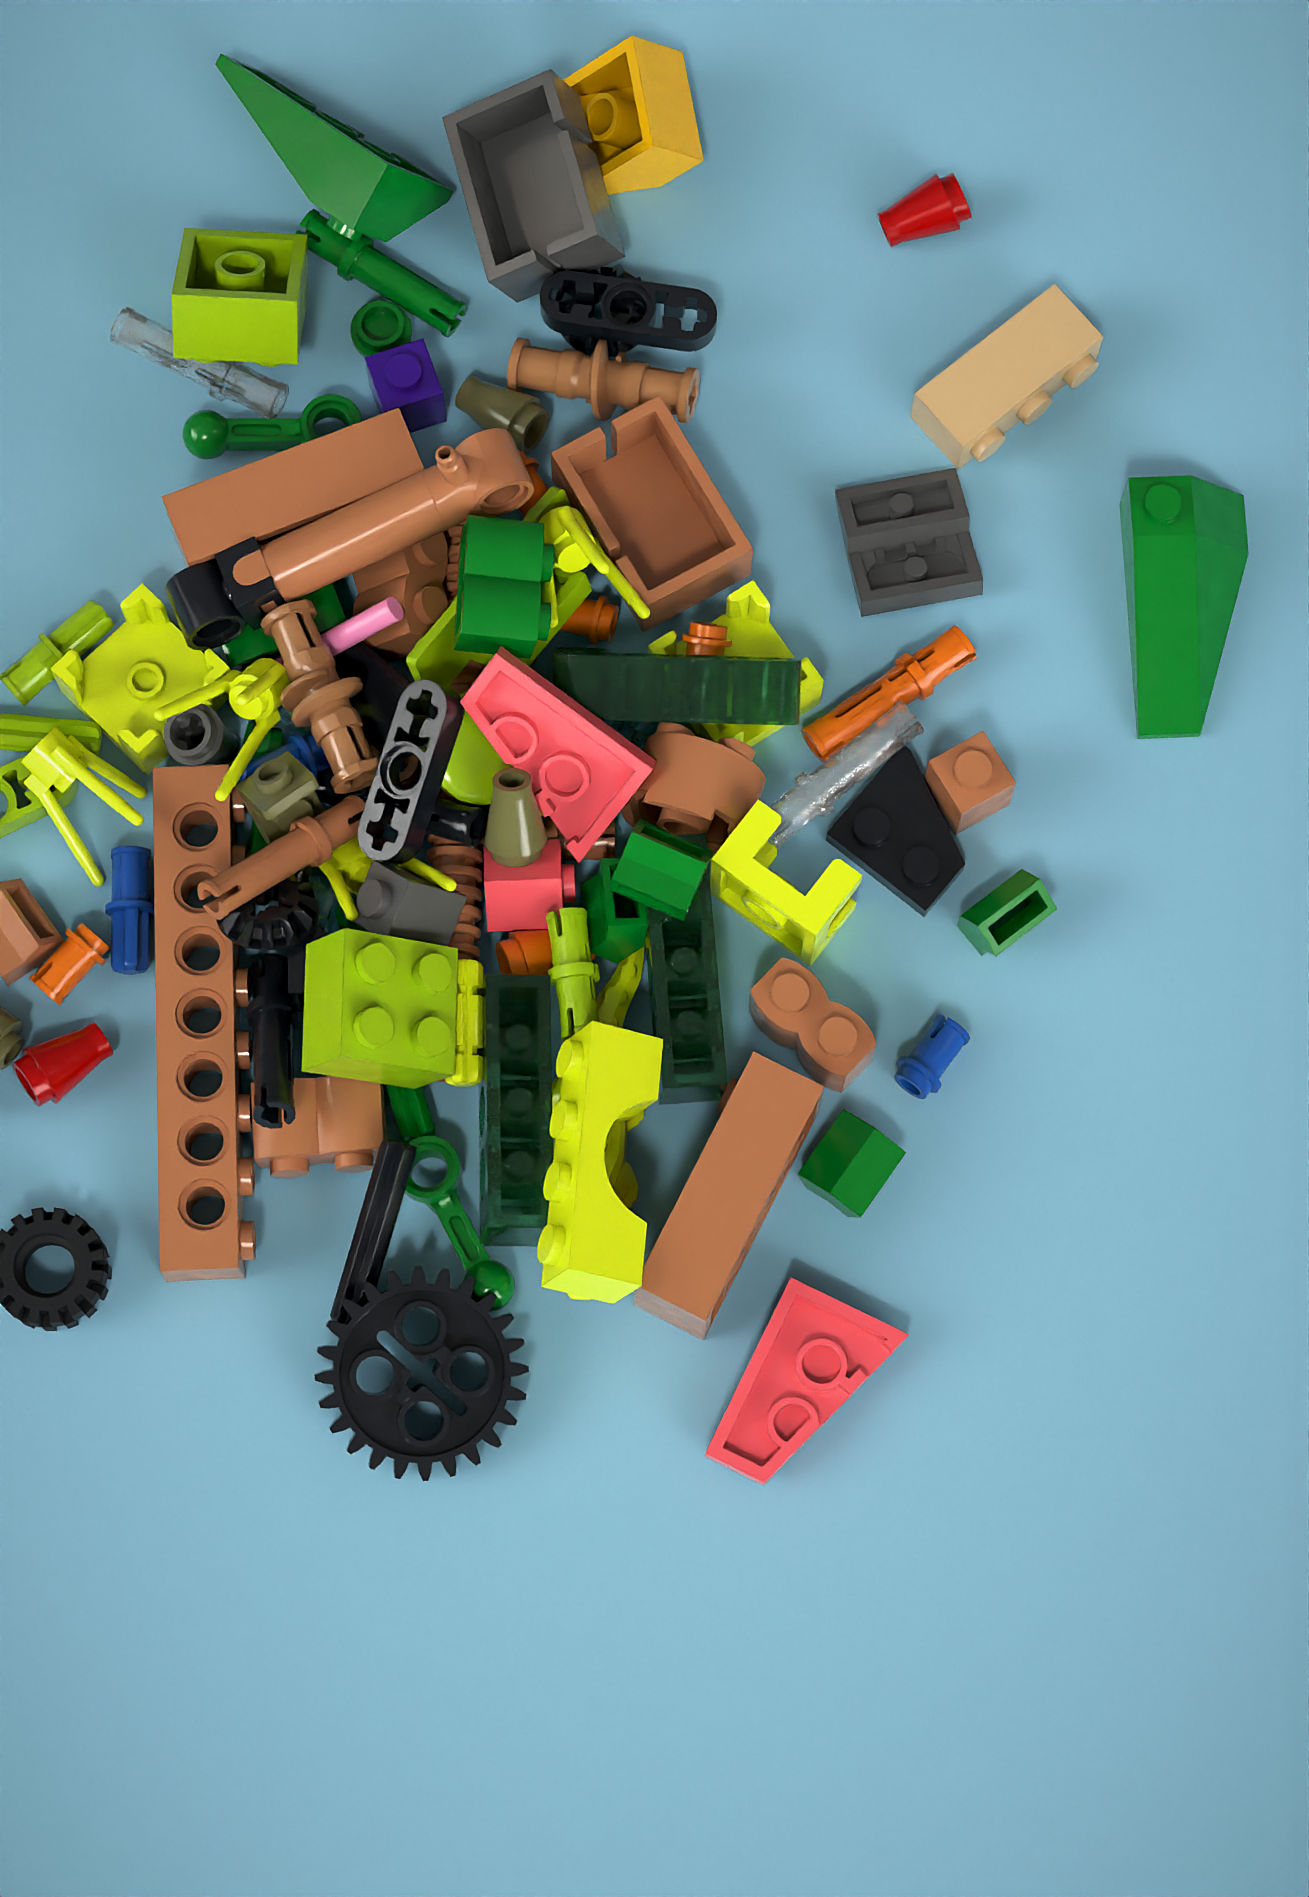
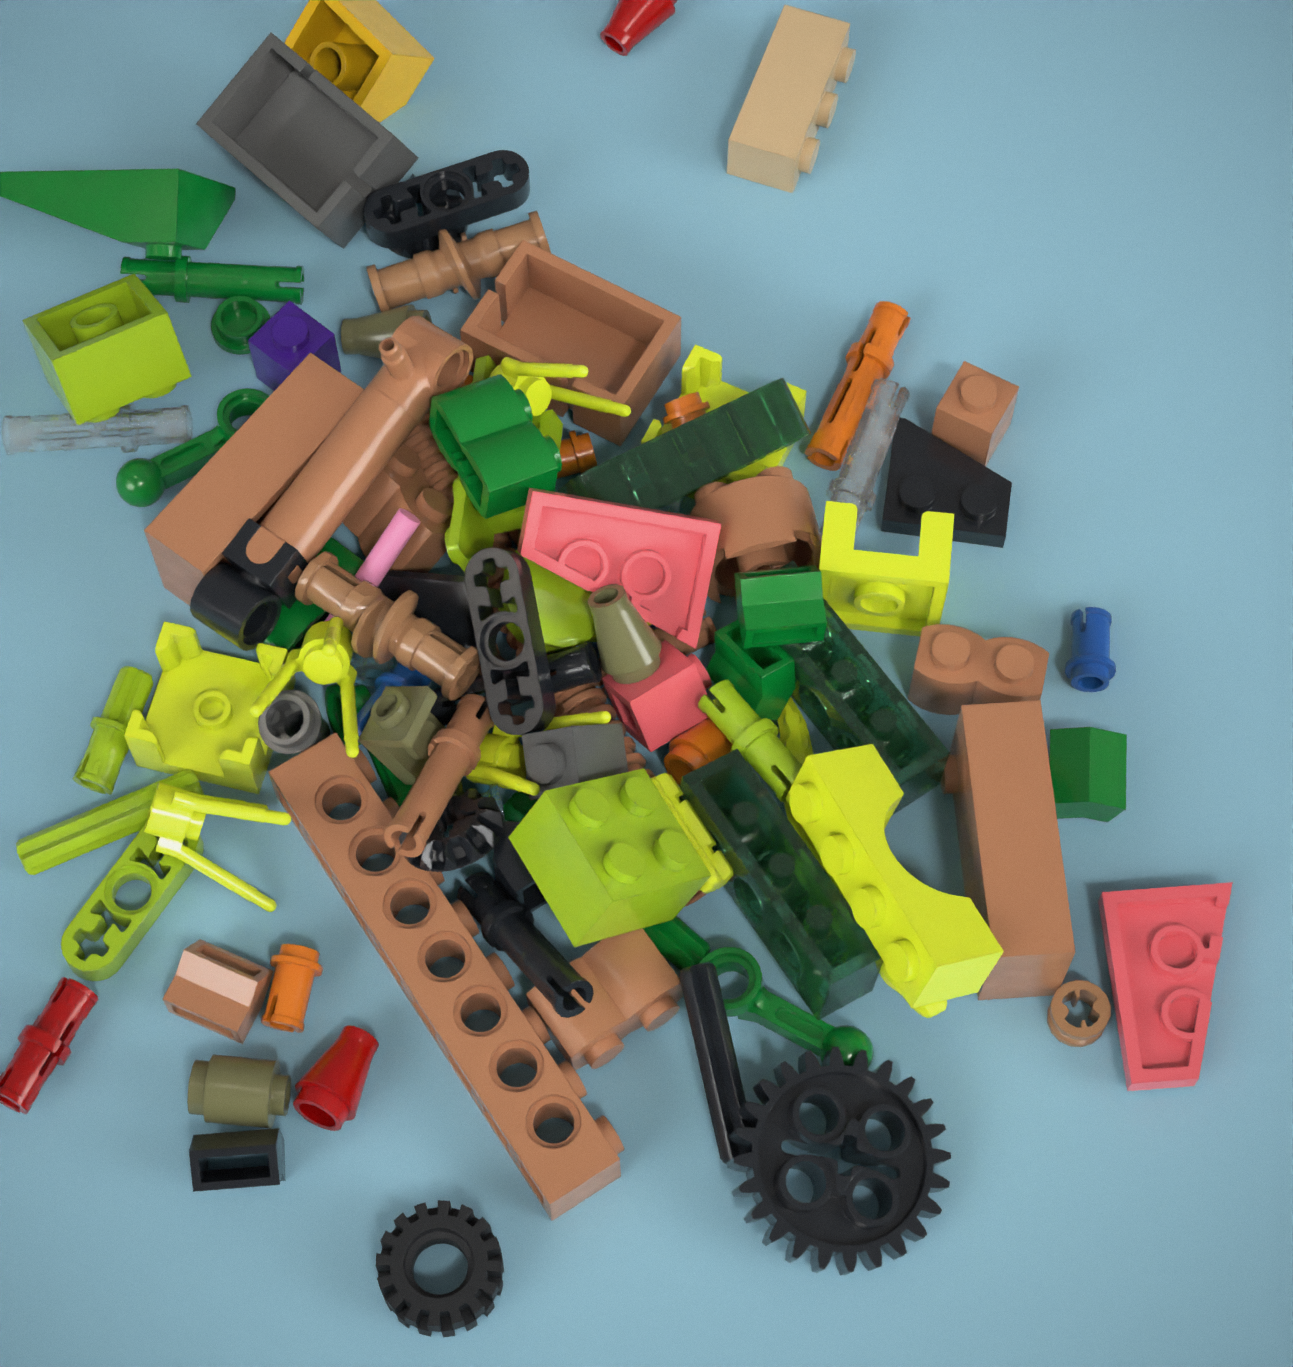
camera: 30 degrees left, 10 degrees down
(130, 909) = (317, 911): blue axle -> none
(688, 1360) = (1099, 1013): none -> medium nougat bush
(908, 542) = (793, 264): dark grey slope -> none
(979, 917) = (1076, 474): green piece -> none
(1182, 583) = (1035, 191): green wedge -> none

